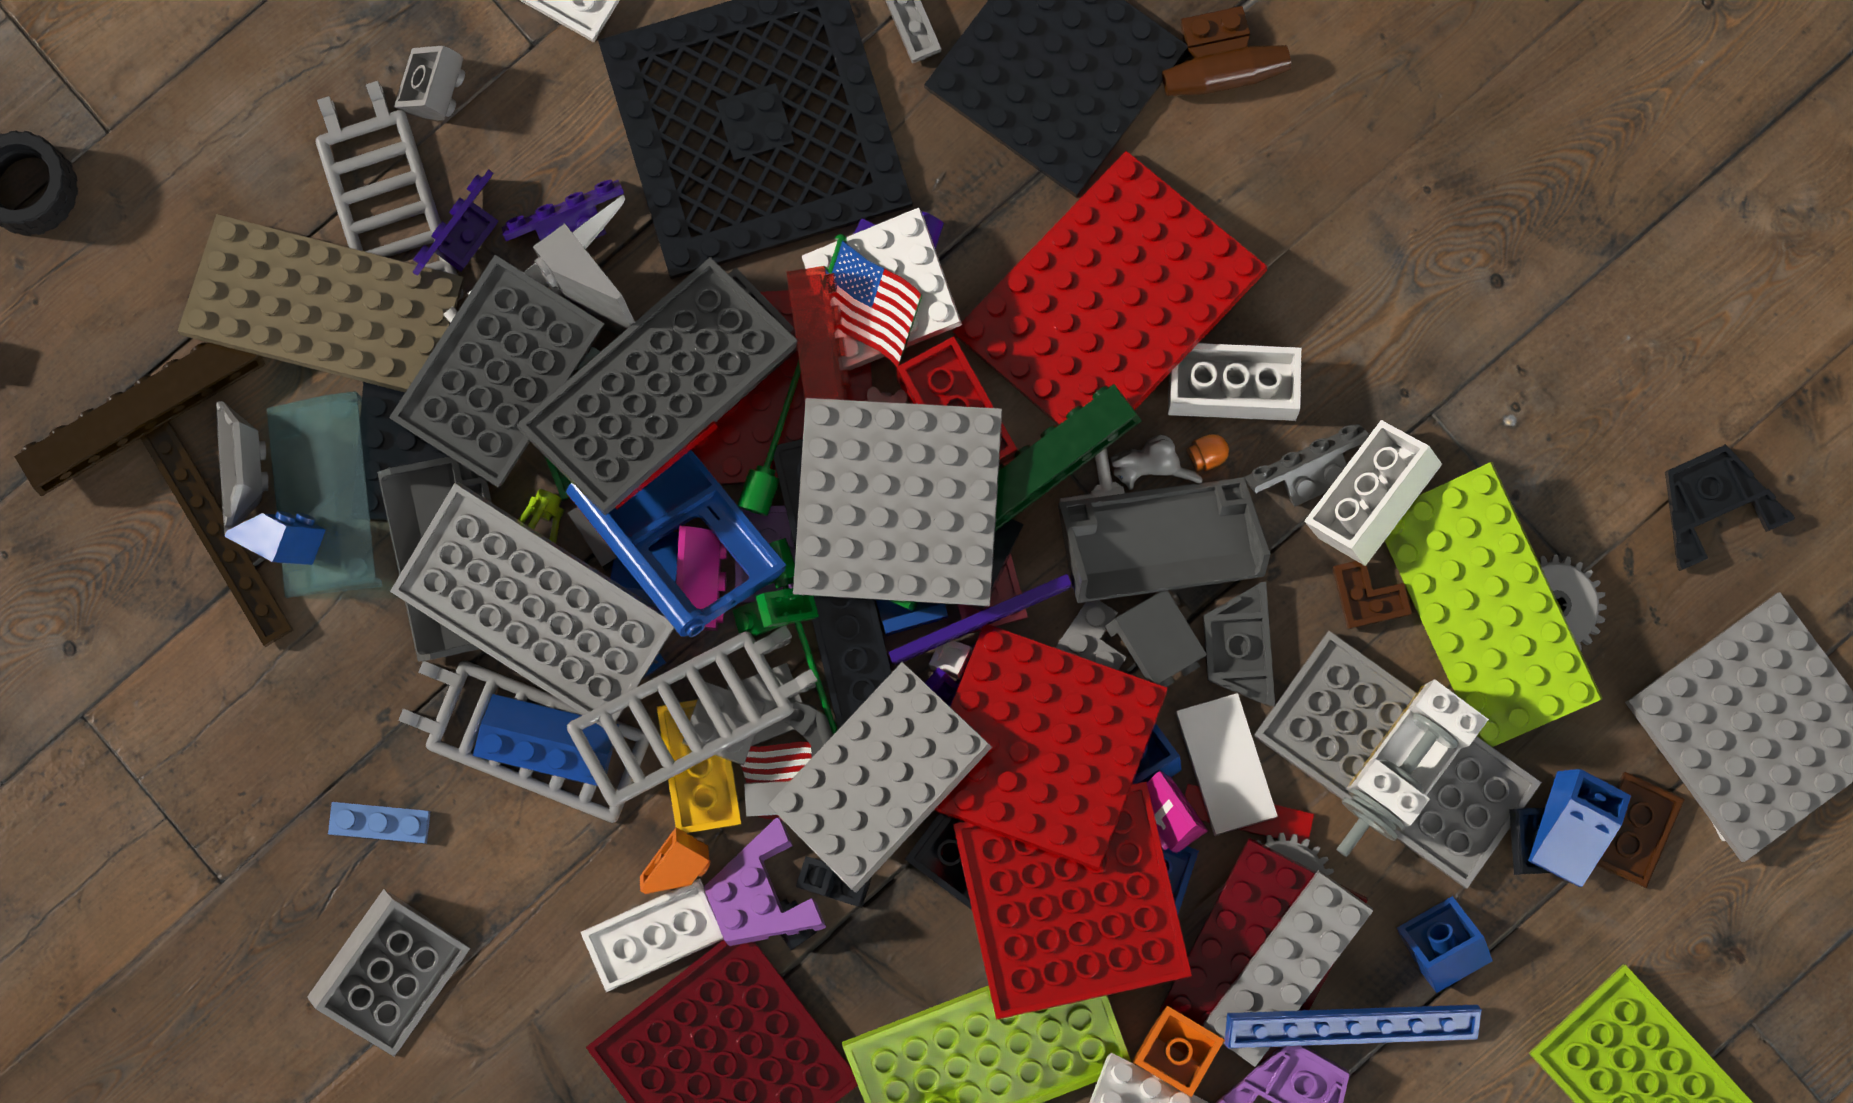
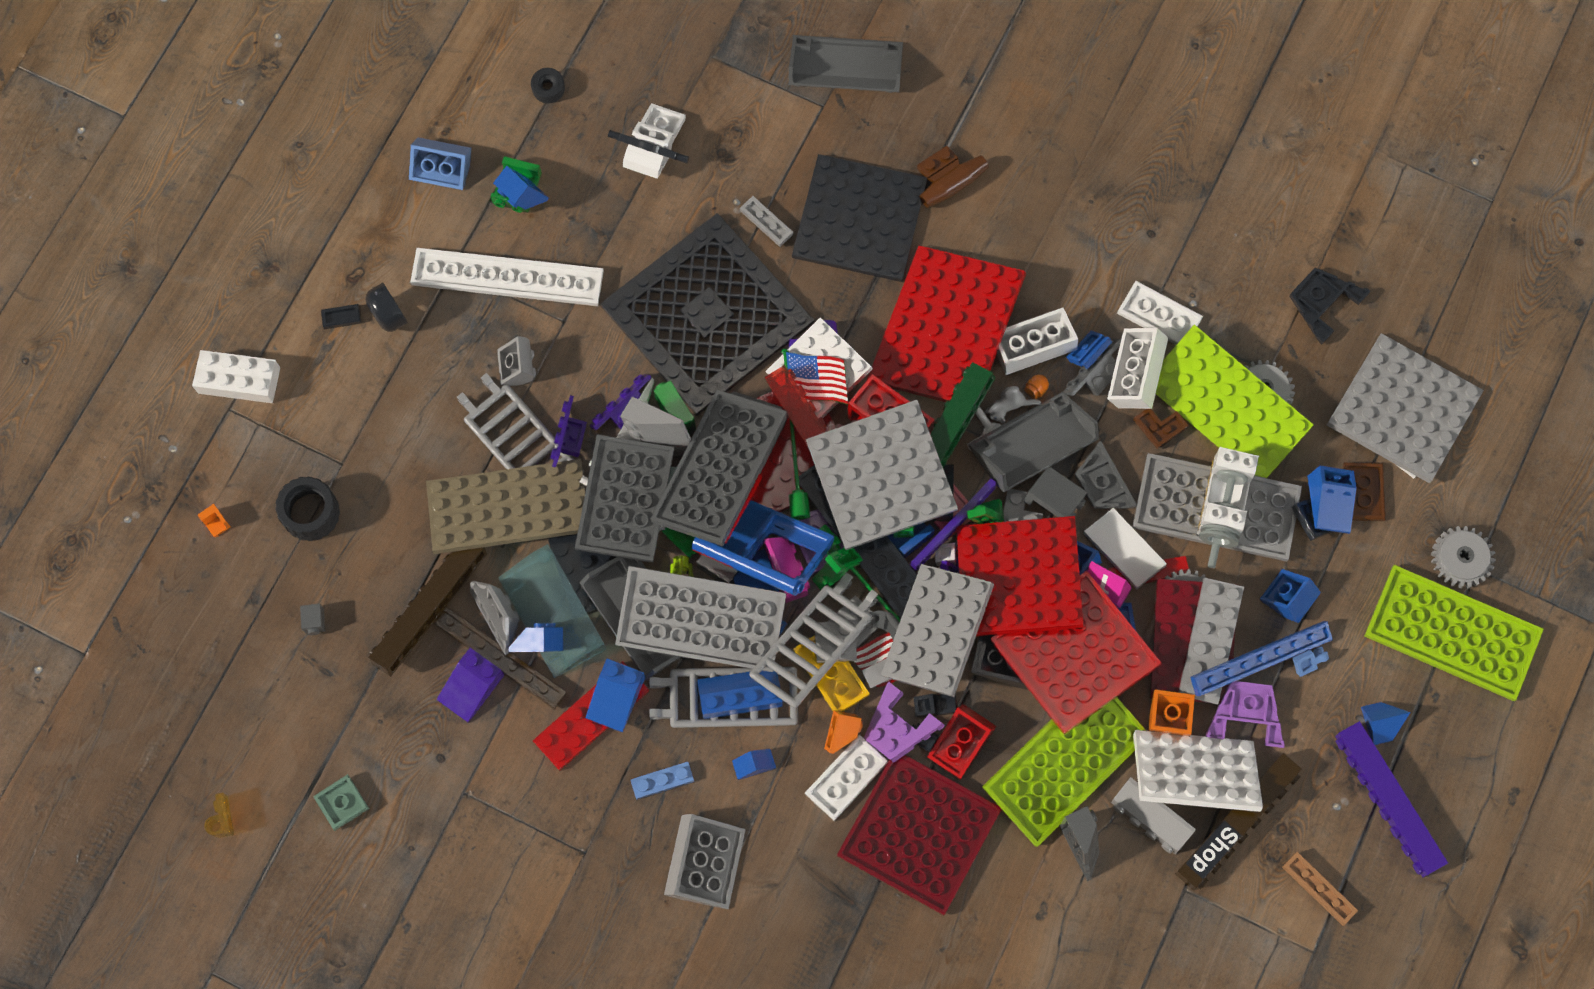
camera: 20 degrees left, 10 degrees down
(155, 557) = (470, 685): none -> dark purple slope
(315, 679) = (572, 731): none -> red plate
(359, 667) = (615, 695): none -> blue slope
(525, 855) = (753, 763): none -> blue slope
(636, 259) = (672, 403): none -> green window
(847, 954) = (961, 741): none -> red slope
(1045, 626) = (987, 512): none -> green bracket
(1314, 429) = (1089, 349): none -> blue plate
(1424, 1057) = (1308, 661): none -> medium blue plate
(1449, 415) = (1155, 310): none -> white tile
(1733, 1020) = (1461, 570): none -> light grey gear

